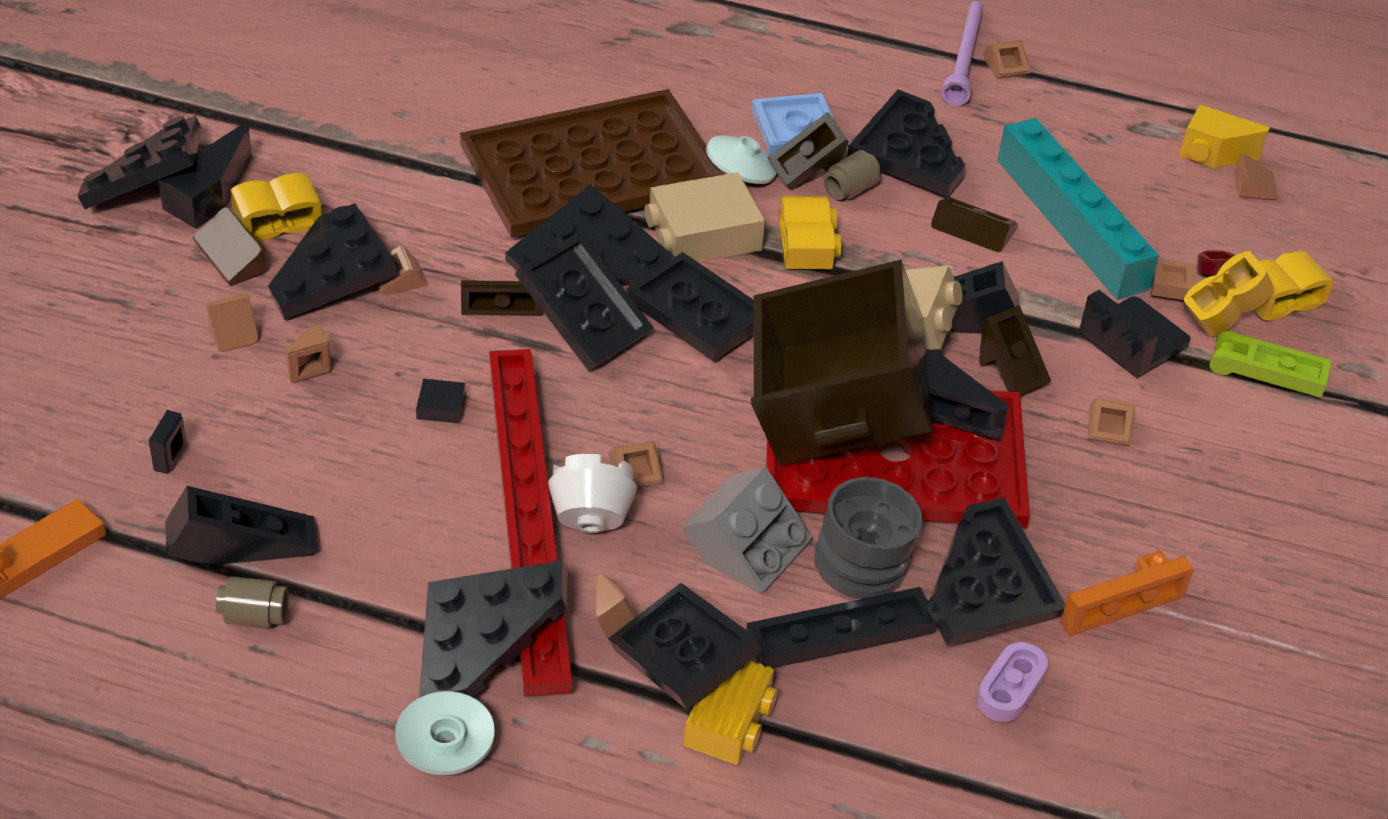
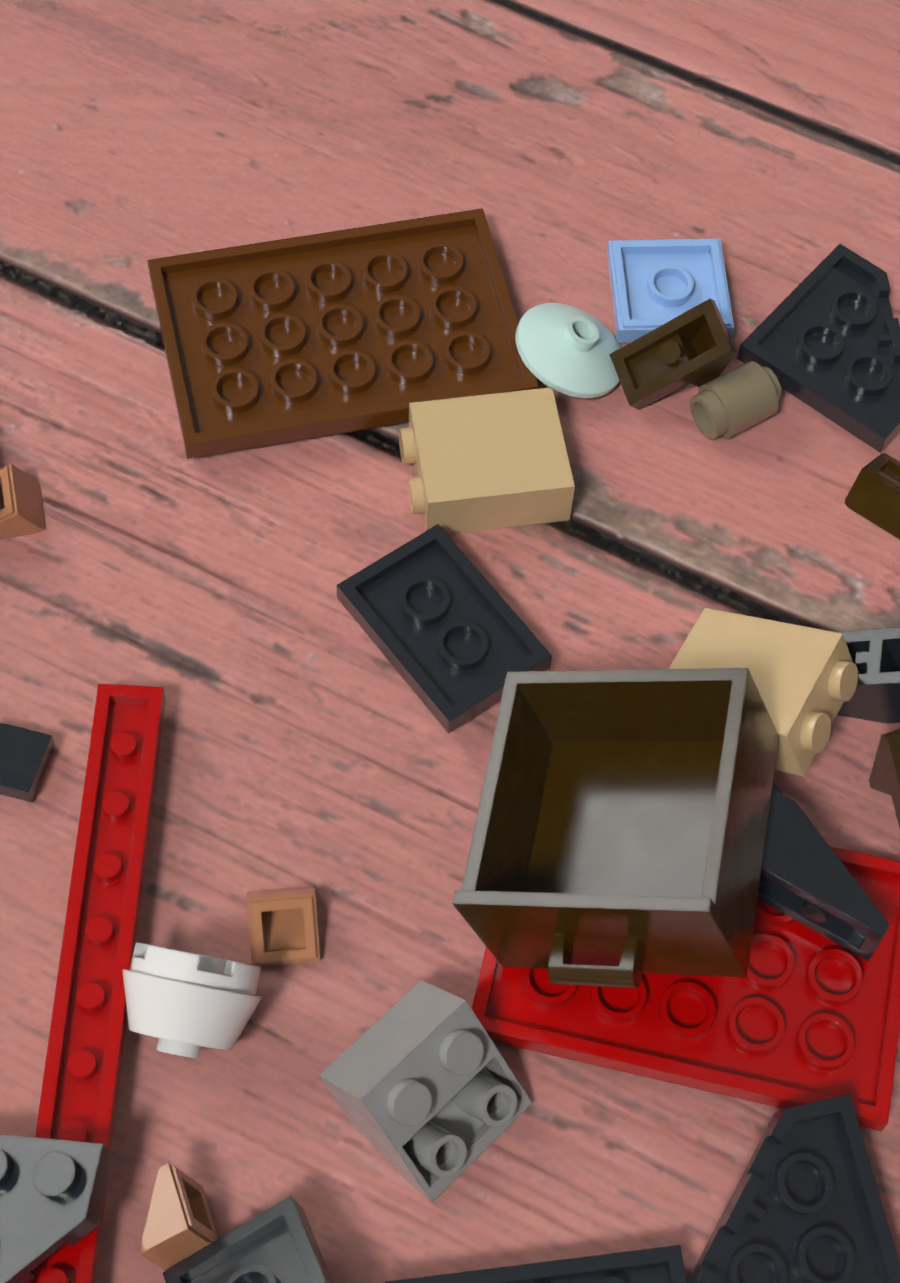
camera: 10 degrees right, 15 degrees up
(496, 298) = (144, 580): dark brown slope -> none
(584, 301) = (259, 611): black plate -> none
(612, 234) = (296, 495): black plate -> none
(808, 232) = (644, 504): yellow brick -> none
(867, 537) = (621, 1109): dark grey wheel -> none

